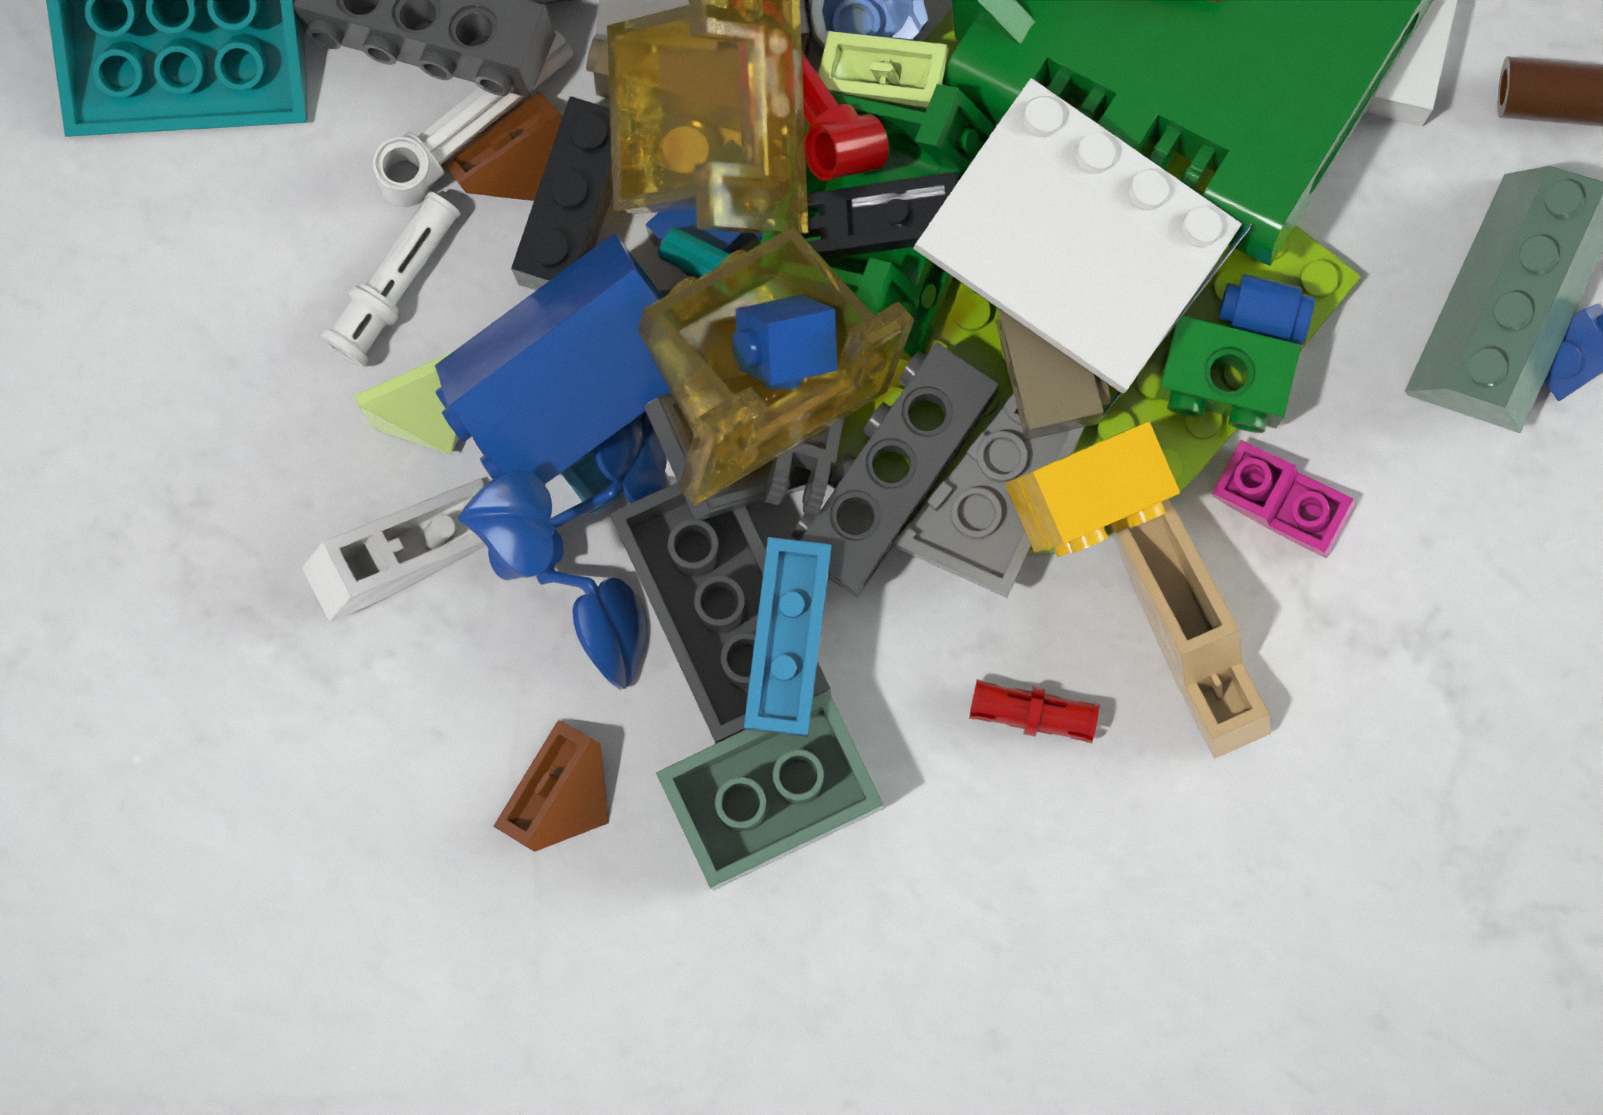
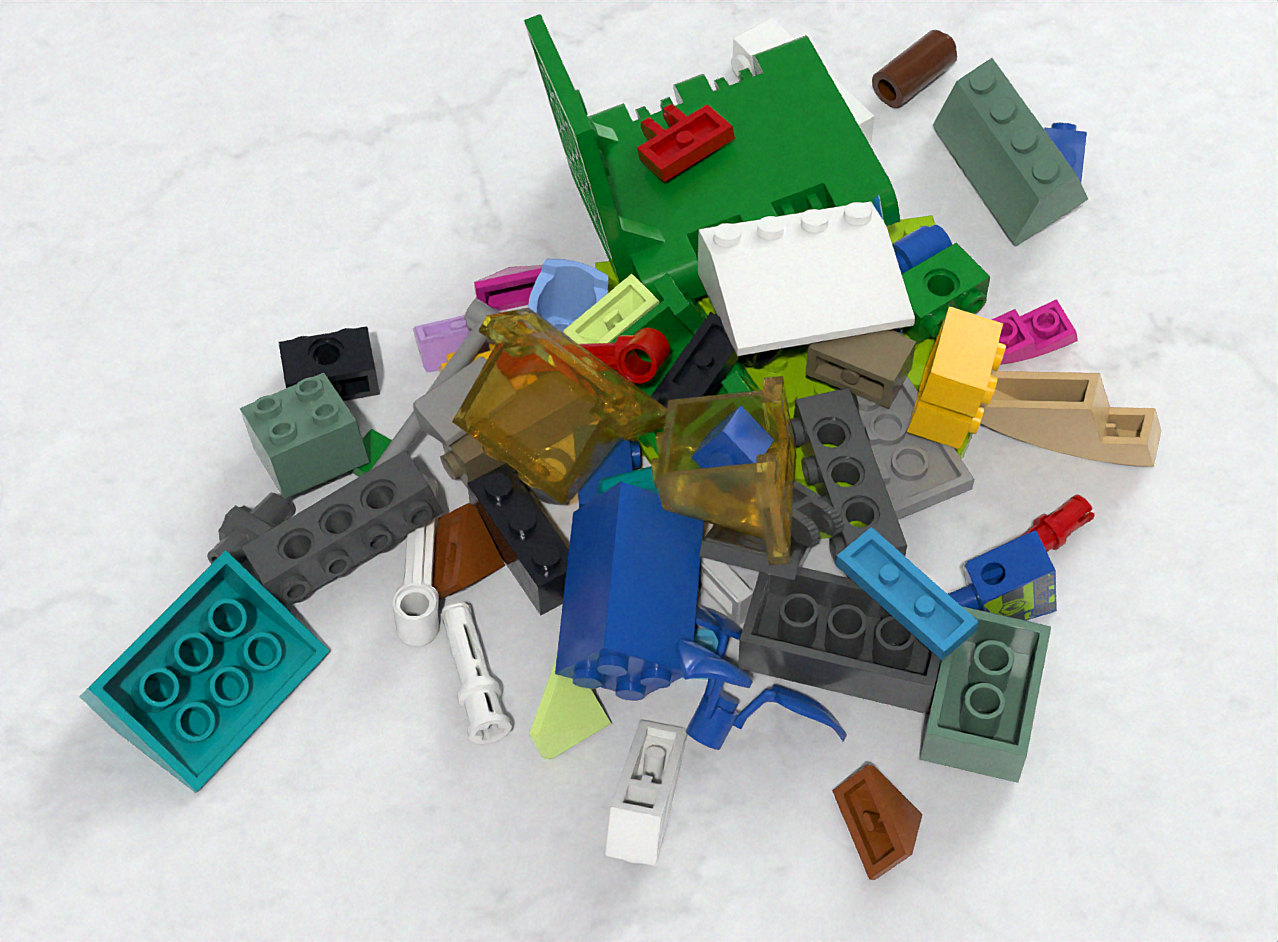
camera: 55 degrees left, 25 degrees down
(931, 732) = (1011, 580): none -> blue torso

